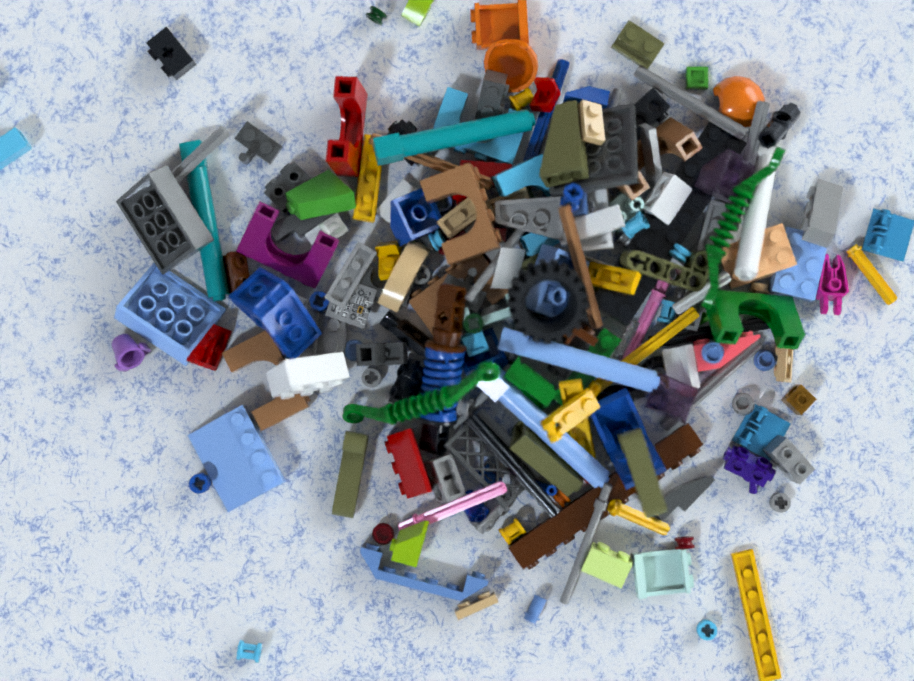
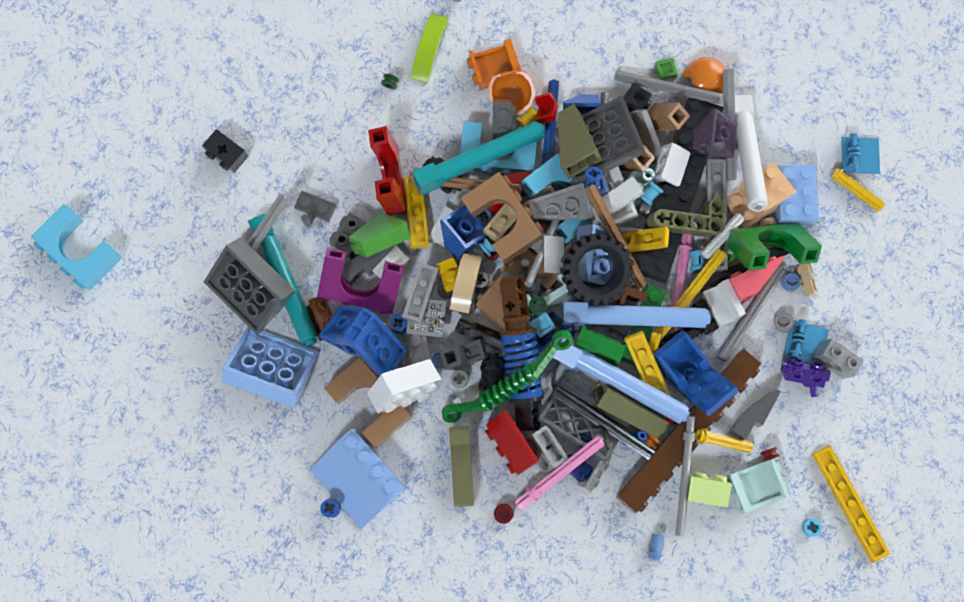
camera: 15 degrees left, 10 degrees down
(128, 353) = (241, 408): medium lavender piece -> none
(210, 348) = (312, 387): red wing -> none
(408, 544) = (530, 515): lime slope -> none
(467, 608) = (608, 551): tan plate -> none
(473, 581) = (594, 538): medium blue slope -> none
(512, 531) = (617, 482): yellow bush -> none
(569, 414) = (642, 362): yellow plate -> none
(591, 122) = (592, 117): tan plate -> none
(637, 45) = (610, 55): olive plate -> none
(642, 472) = (719, 395): olive beam -> none
(672, 398) = (724, 330): clear purple slope -> none
(679, 253) = (695, 206): medium azure bush -> none
(712, 352) = (748, 279): medium blue plate -> none
(743, 191) = (731, 164): green piece -> none
(775, 507) = (835, 403): light grey bush -> none
(779, 125) = (746, 86): black piece -> none
(798, 399) = (829, 306): pearl gold brick -> none
(821, 213) = (802, 147): light grey brick -> none
(832, 285) = (829, 205): dark pink hinge -> none

